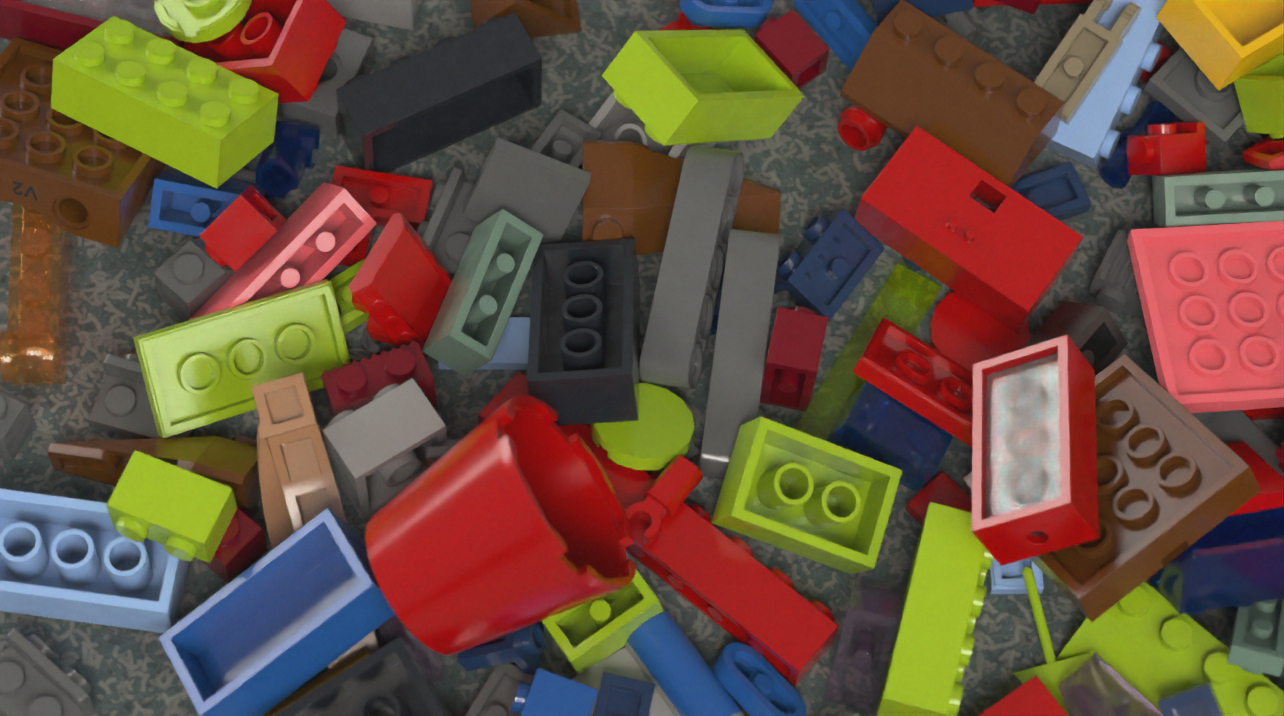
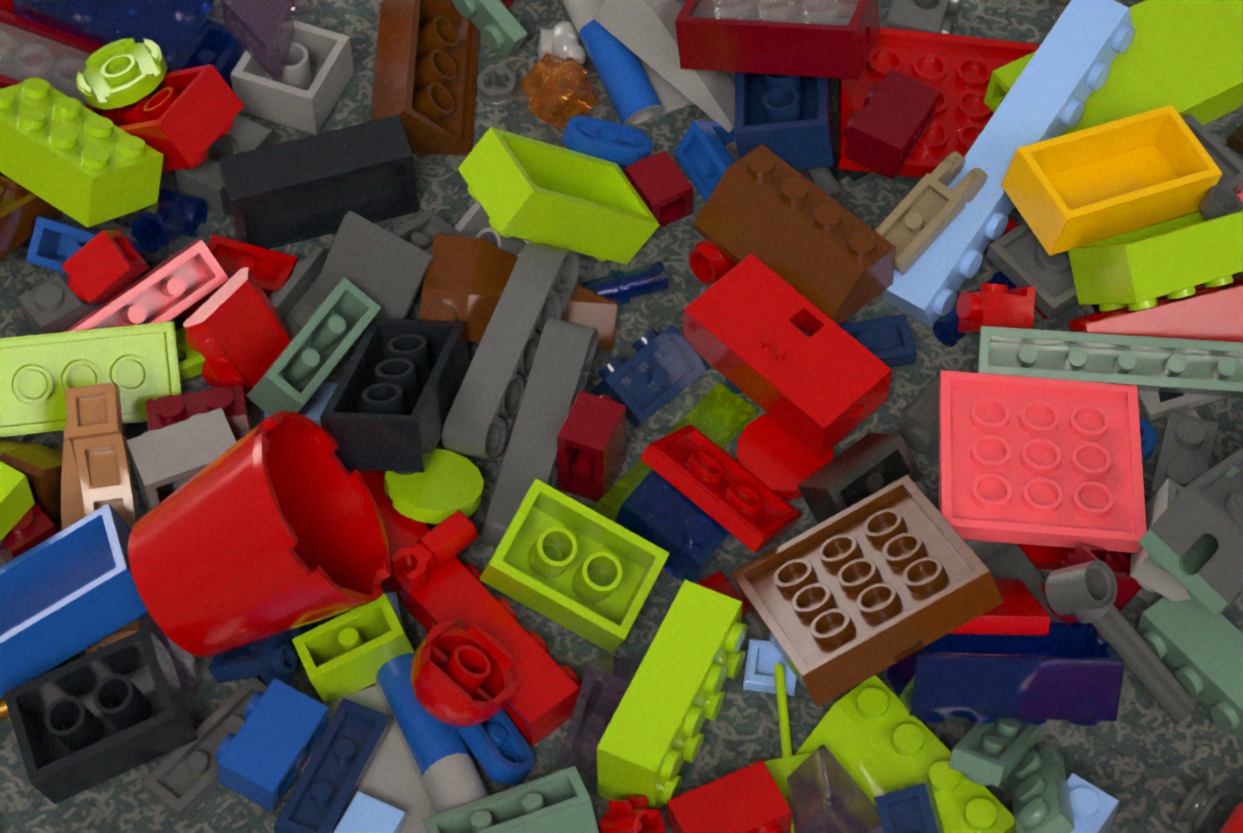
camera: 15 degrees right, 10 degrees down
(727, 636) = (462, 675): none -> red cylinder
(776, 166) = (629, 284): none -> clear blue pin
(1034, 451) = (792, 544): brick -> none

